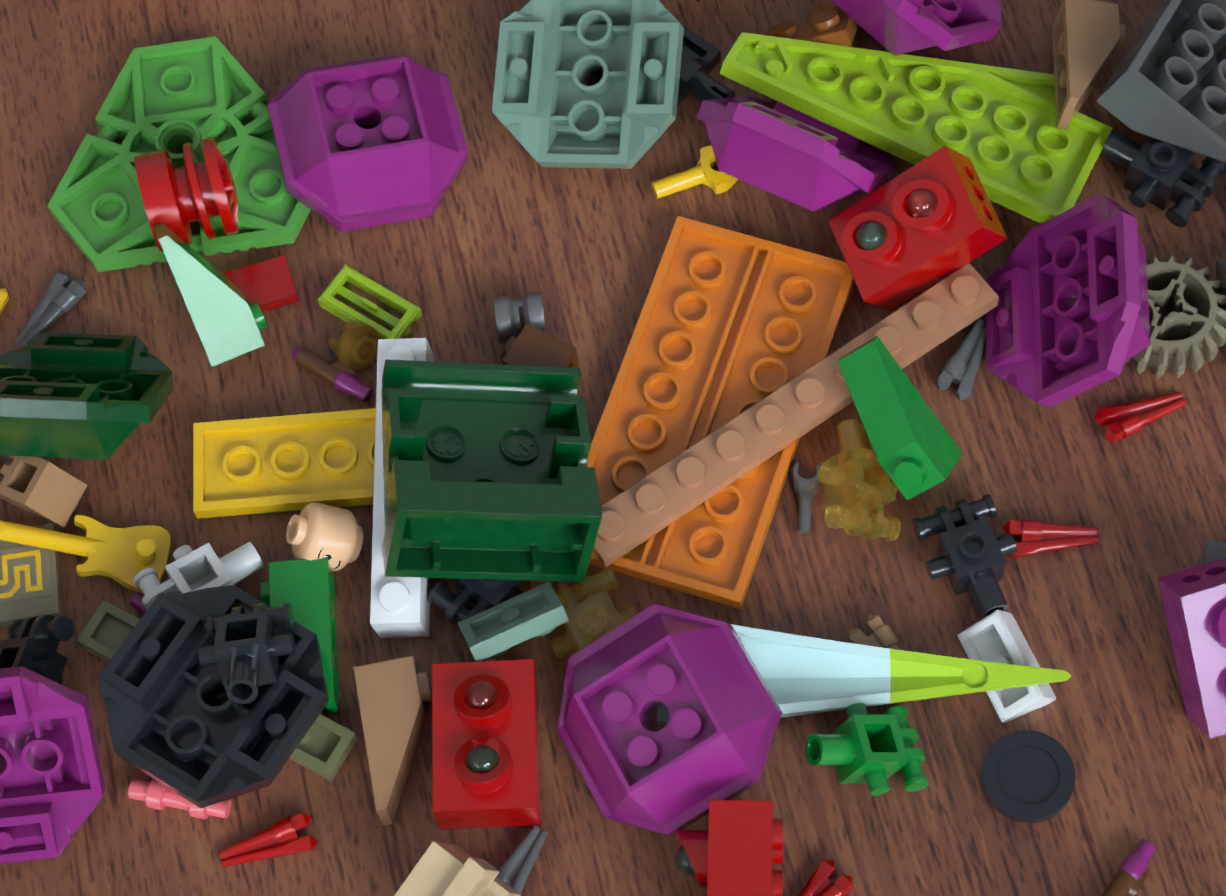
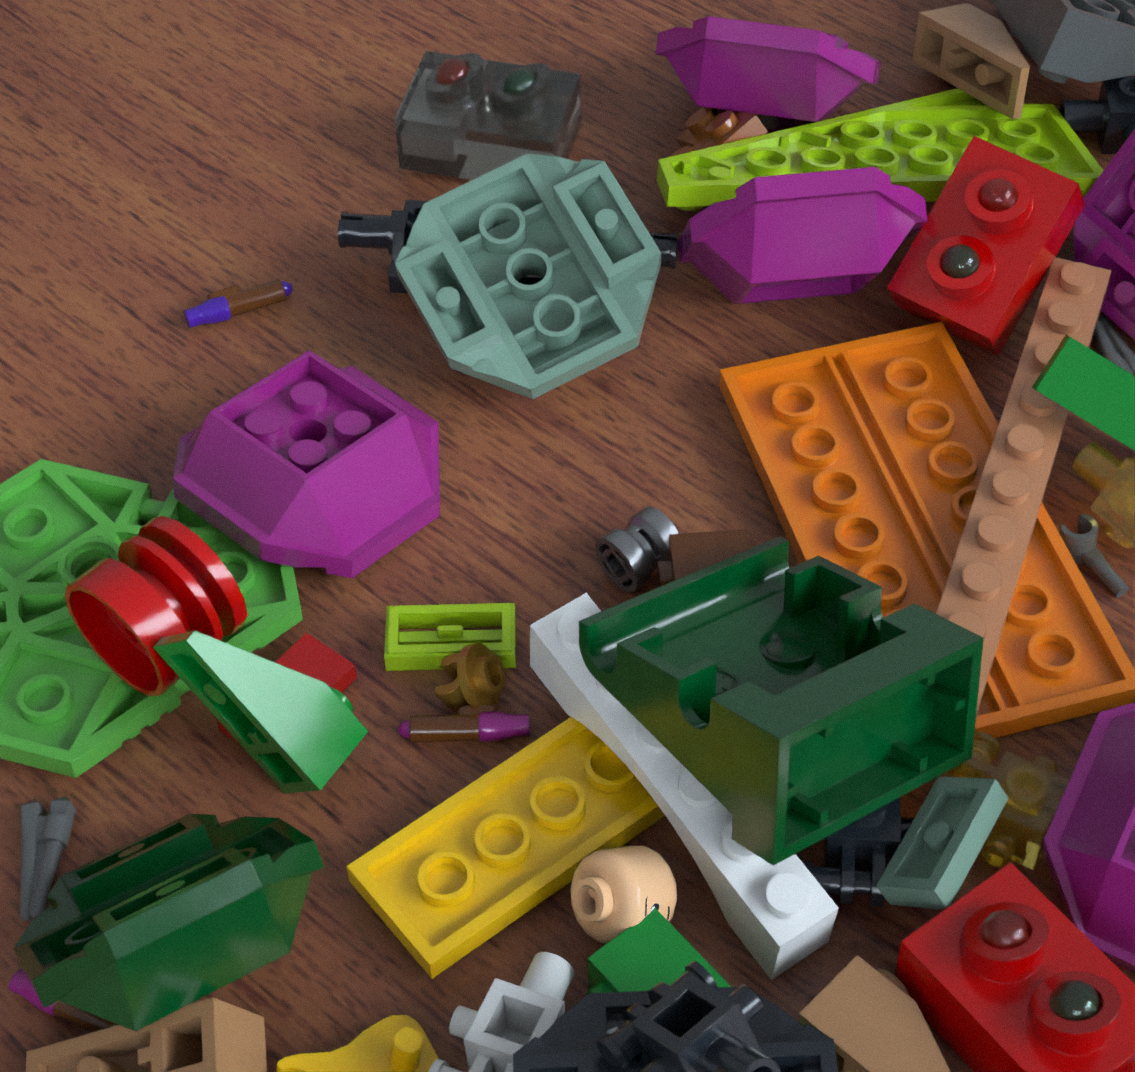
camera: 40 degrees left, 15 degrees down
(697, 175) = (698, 331): yellow bar -> none

